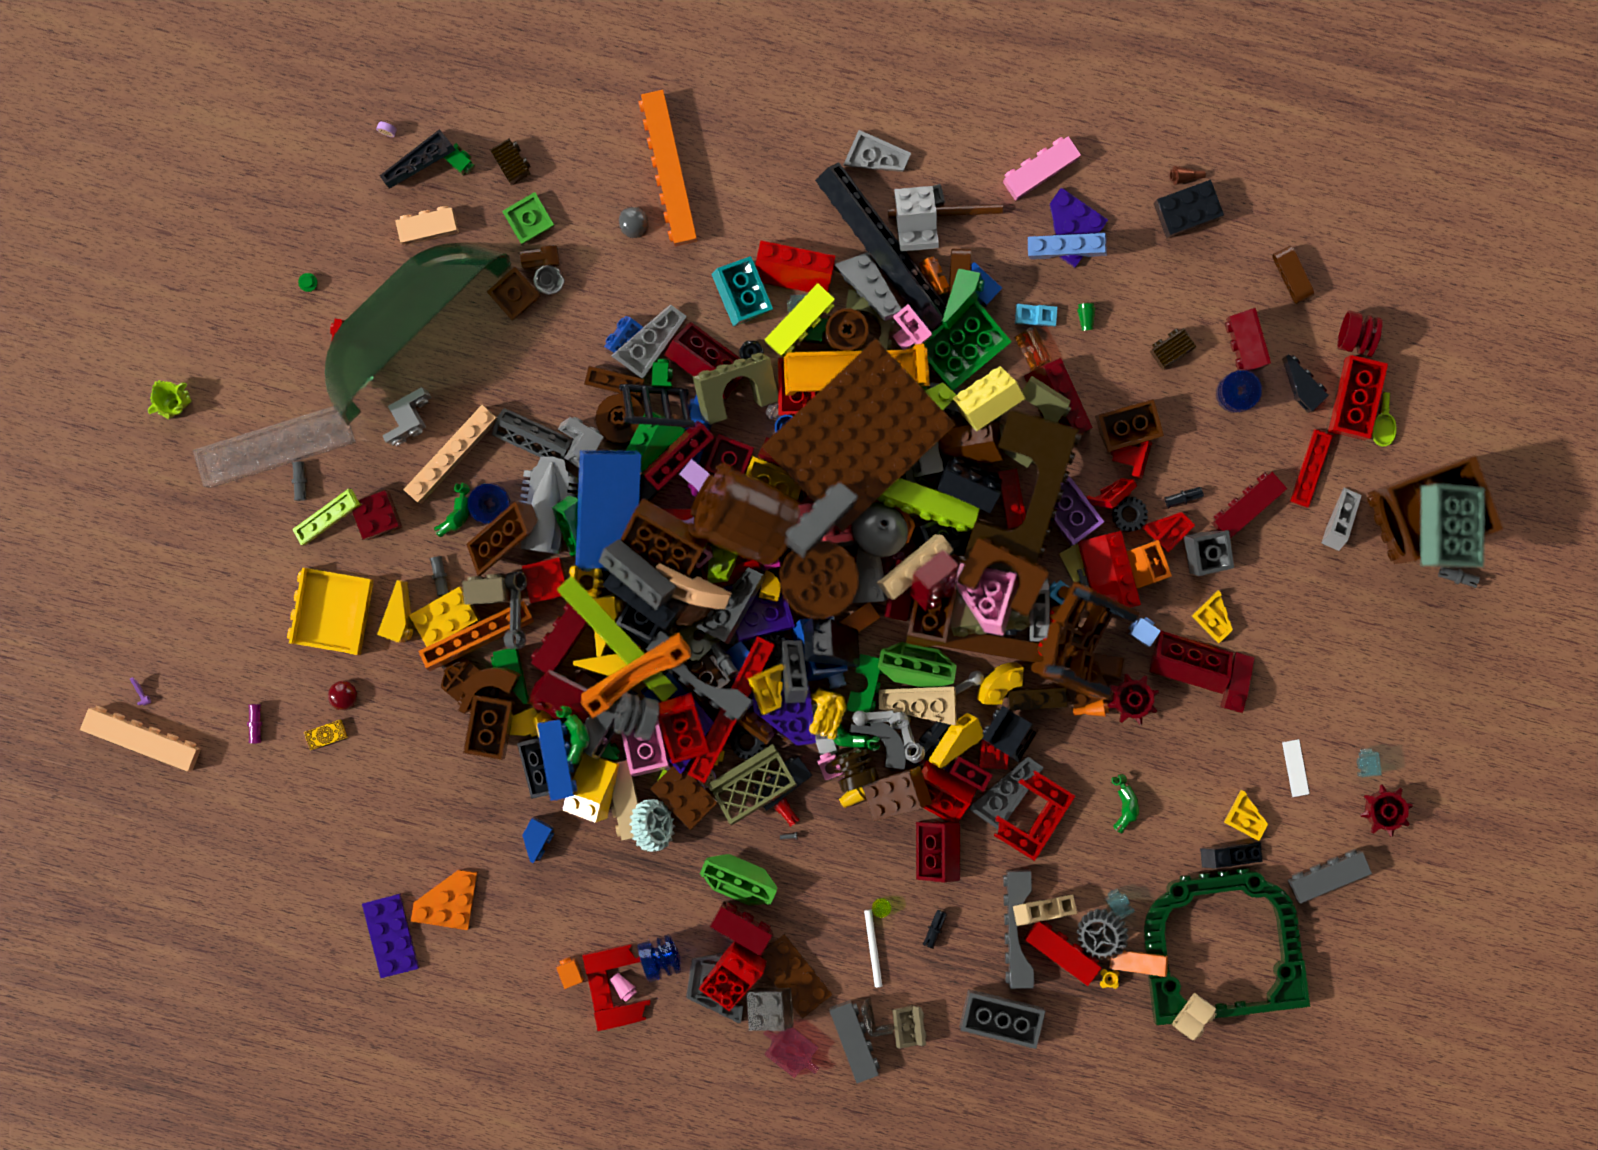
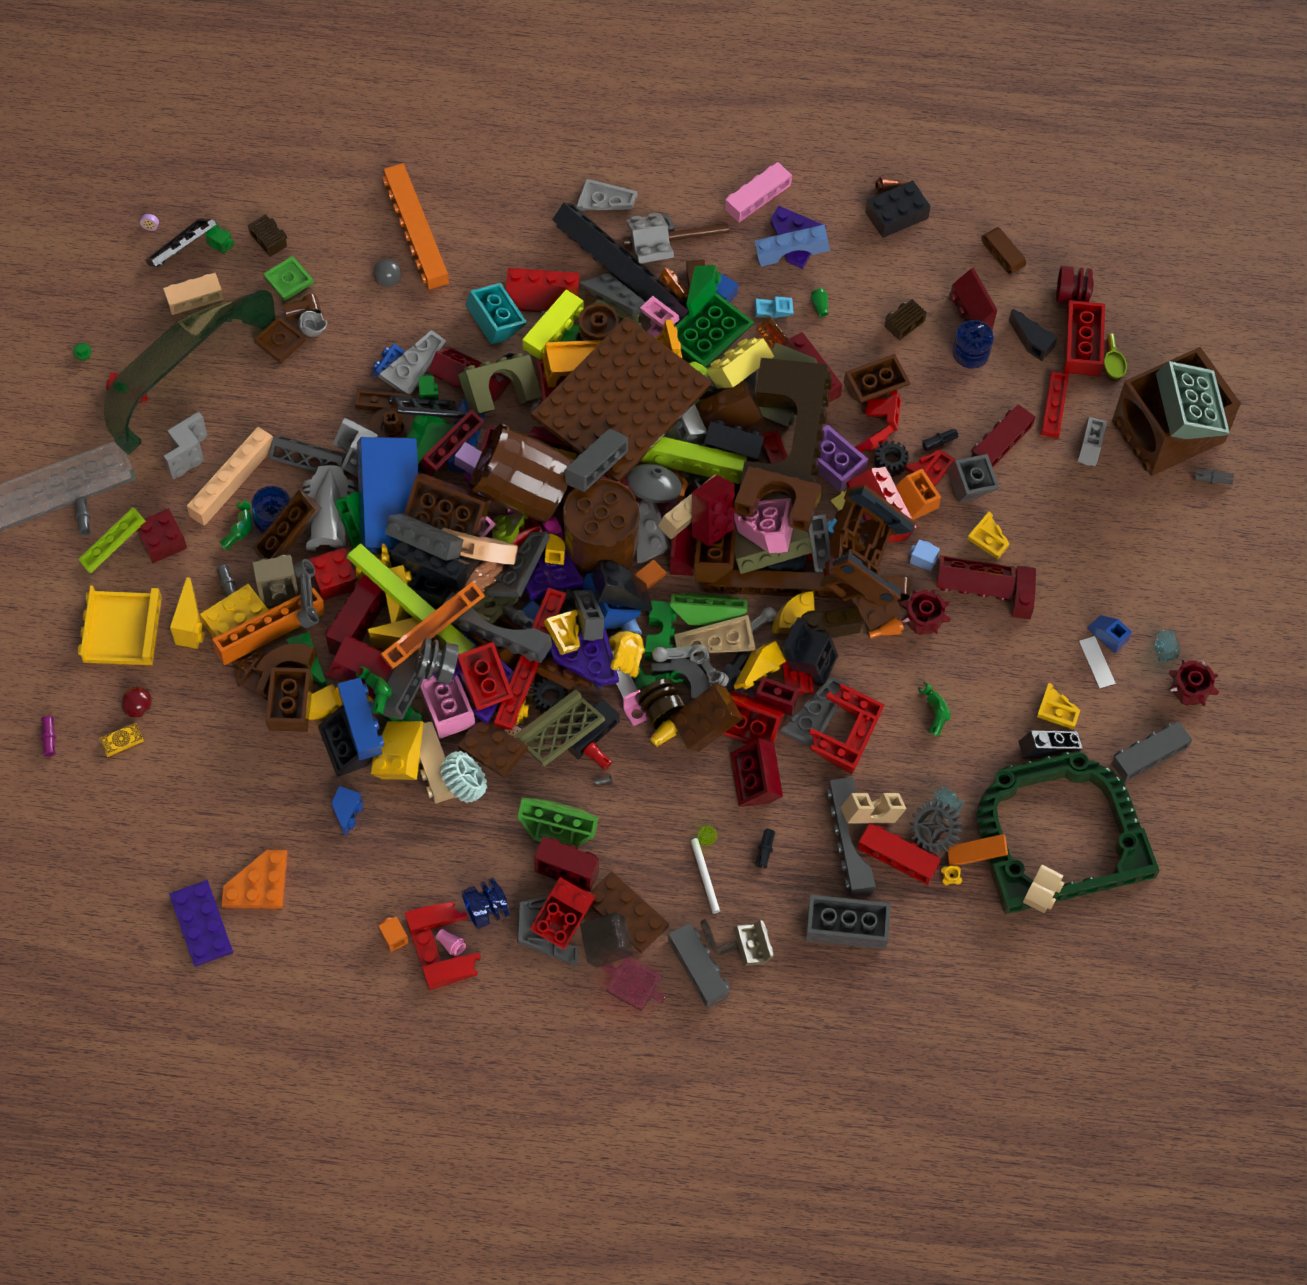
camera: 15 degrees left, 25 degrees down
(1314, 742) = (1110, 632): none -> blue slope

